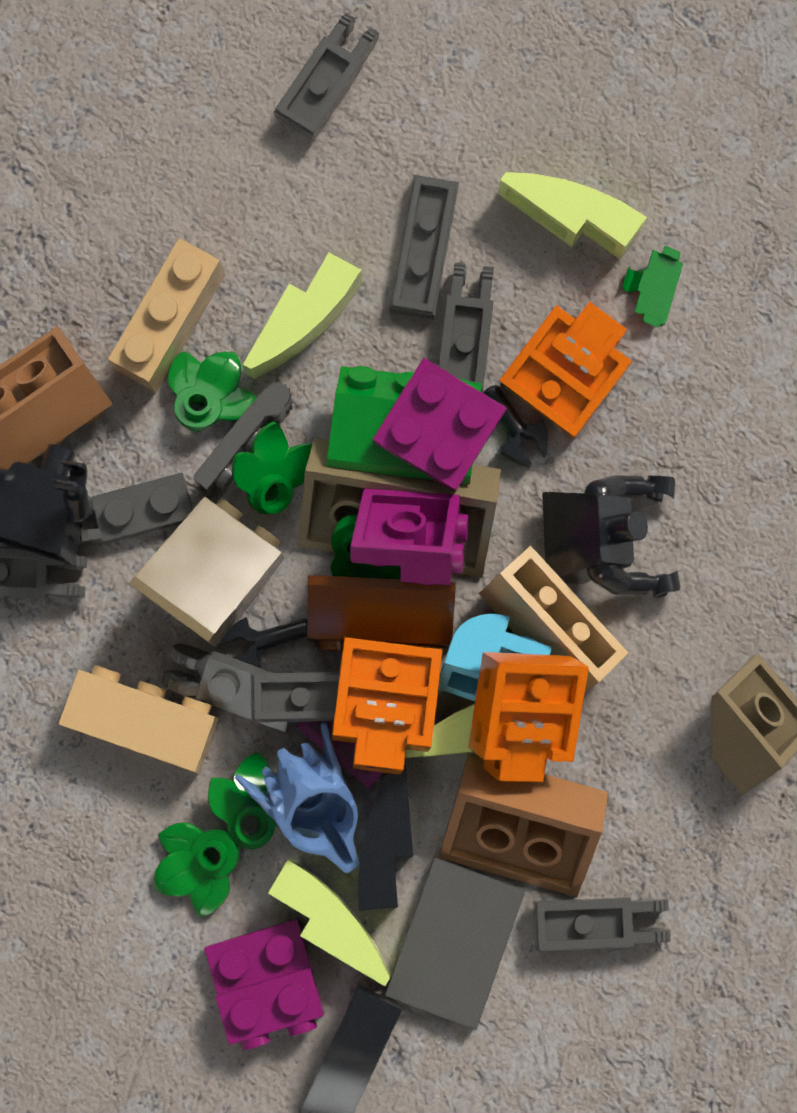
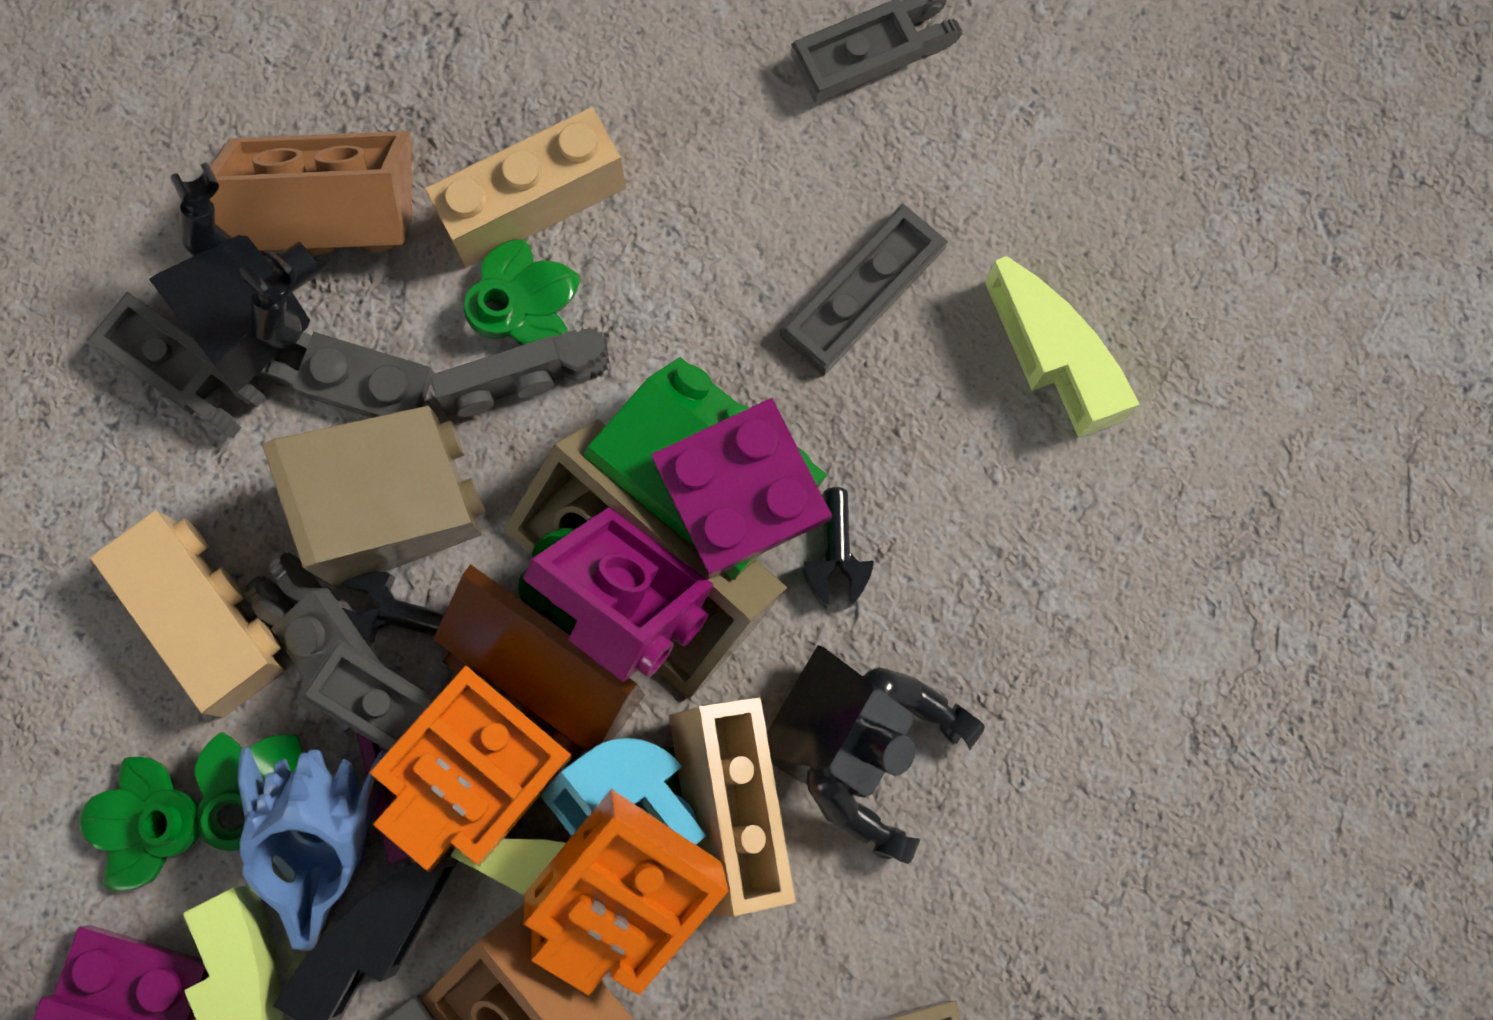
camera: 30 degrees right, 5 degrees down
(272, 466) = (527, 414): green plate -> none
(303, 315) = (676, 280): yellowish green slope -> none
(467, 328) = (853, 405): dark grey hinge -> none
(569, 367) = (942, 520): orange piece -> none
(655, 285) = (1101, 491): green piece -> none

